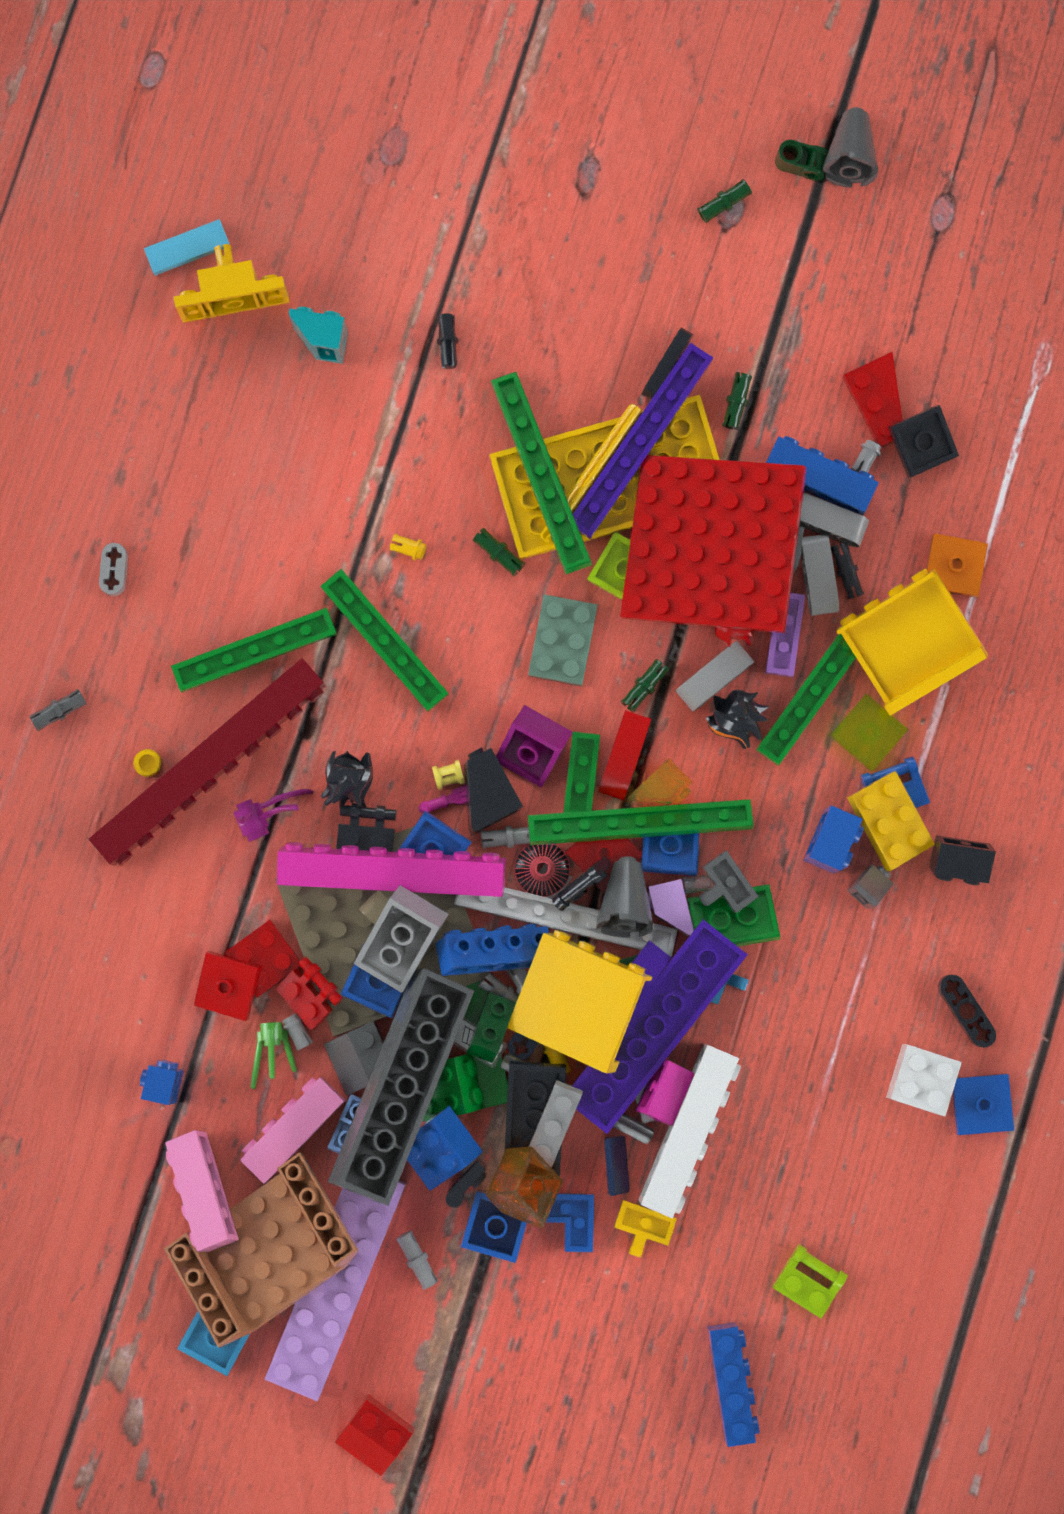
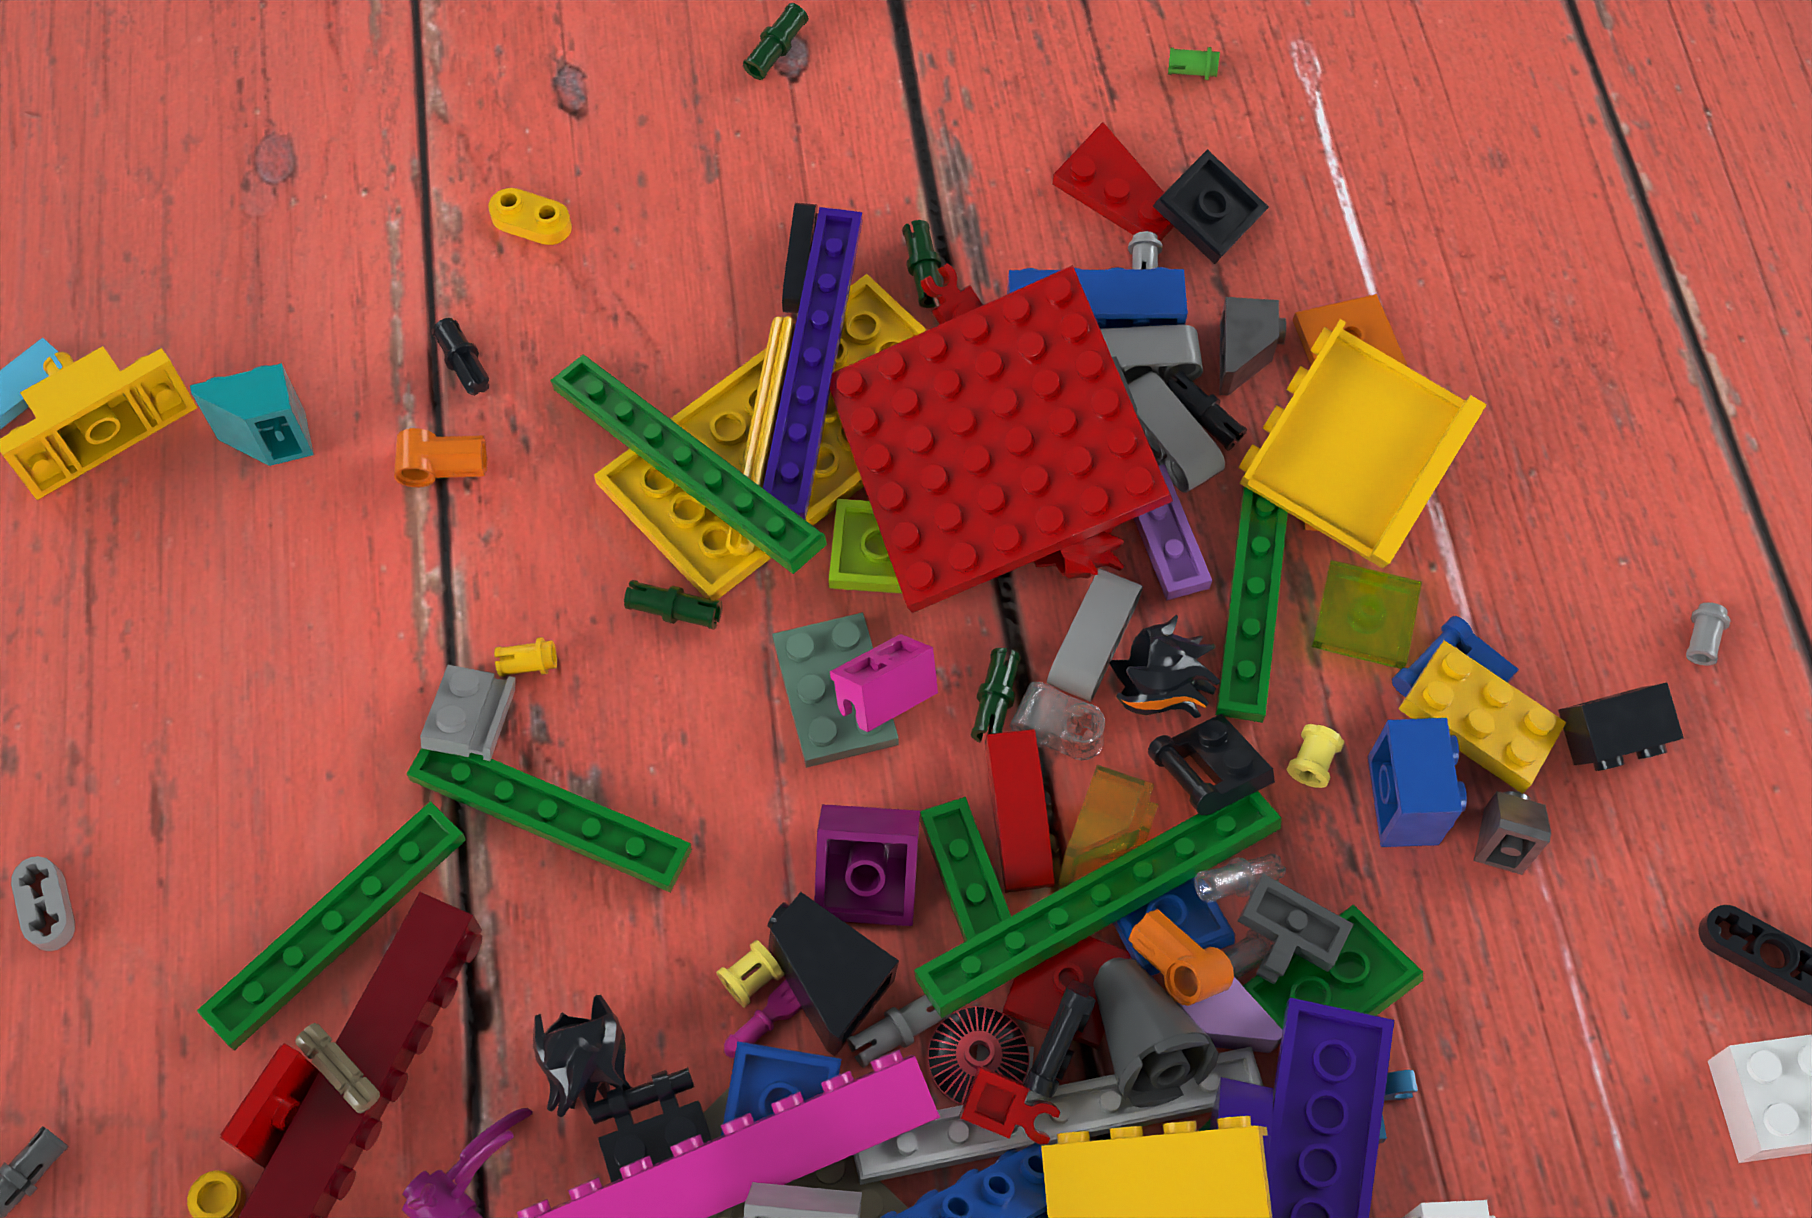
camera: 25 degrees left, 20 degrees down
(191, 735) = (270, 1105): none -> red plate
(228, 732) = (337, 1068): none -> dark tan axle
(365, 566) = (467, 712): none -> light grey plate
(404, 399) = (425, 456): none -> orange piece
(523, 259) = (527, 216): none -> yellow plate
(537, 901) = (1000, 1104): none -> red plate
(588, 653) = (885, 681): none -> dark pink hinge
(661, 882) = (1187, 968): none -> orange piece
(666, 712) = (1057, 719): none -> clear piece
(717, 844) = (1237, 877): none -> clear axle
(741, 443) = (951, 299): none -> red plate
(745, 778) = (1222, 755): none -> black plate
(794, 798) = (1315, 755): none -> light yellow bush
(896, 538) = (1247, 339): none -> flat silver slope
(970, 334) = (1194, 62): none -> bright green pin
(1045, 831) = (1709, 623): none -> light grey pin

